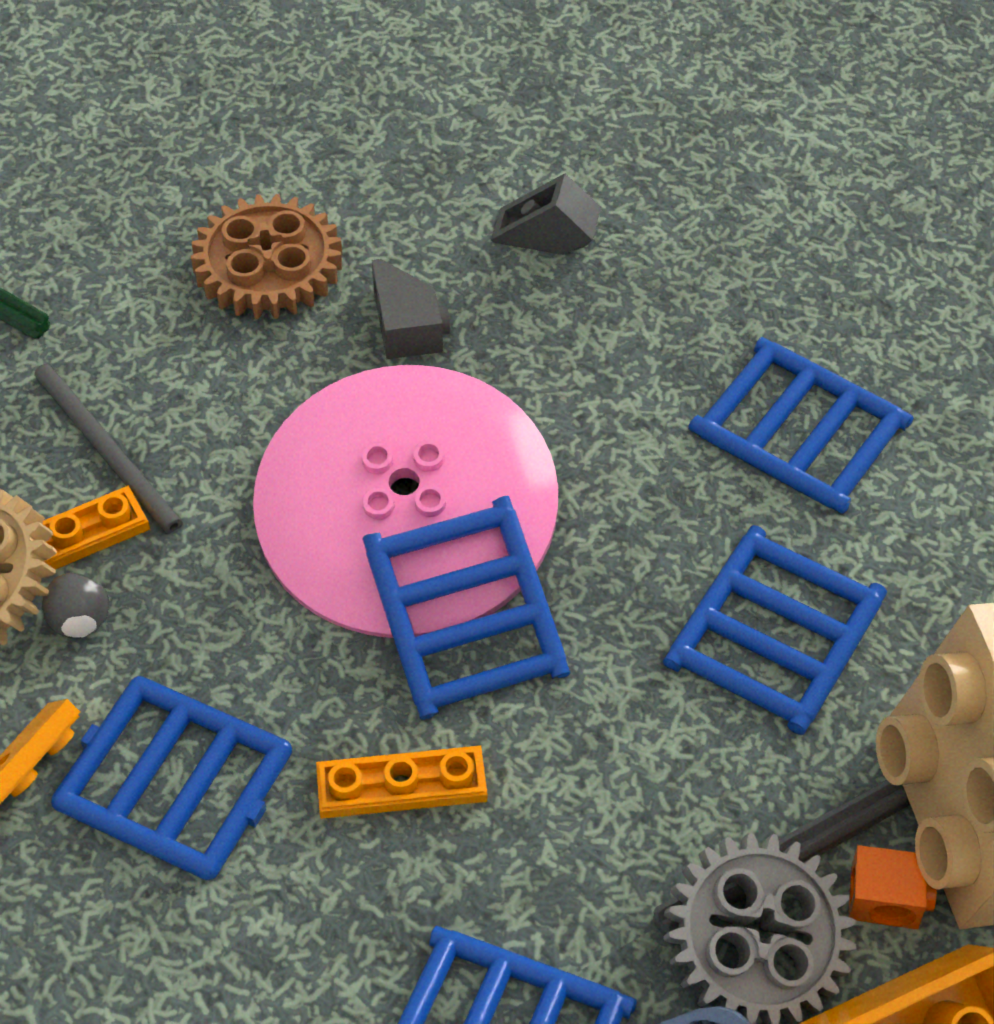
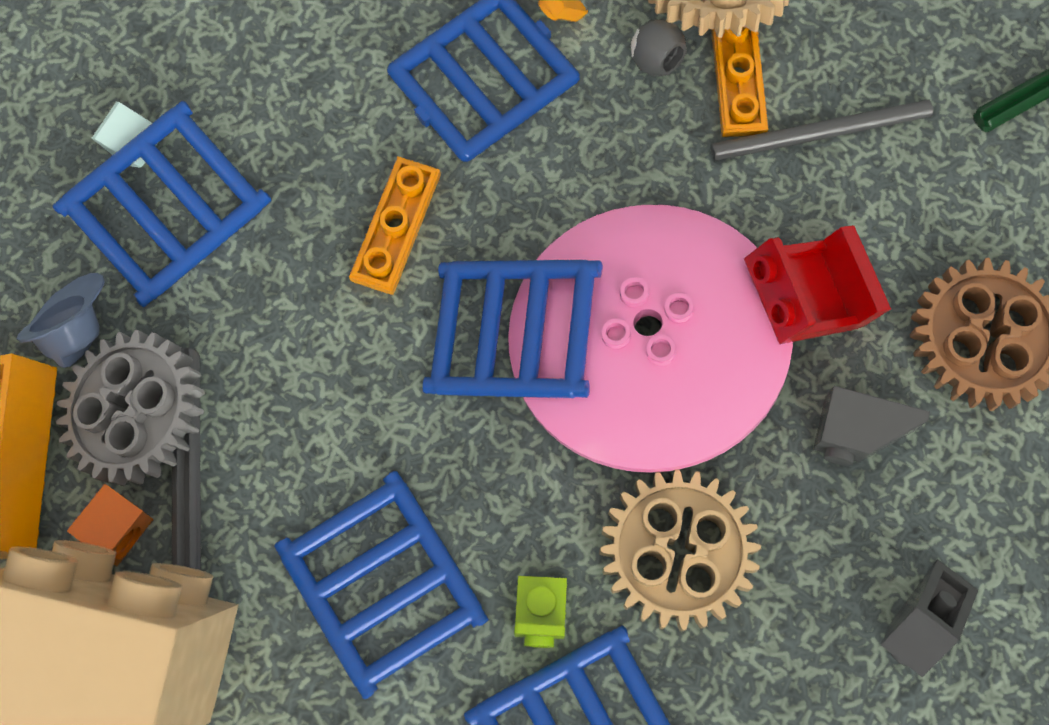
camera: 120 degrees right, 20 degrees up
(288, 380) = (817, 285): none -> red panel
(599, 403) = (722, 561): none -> tan gear
(720, 486) = (540, 610): none -> lime bracket

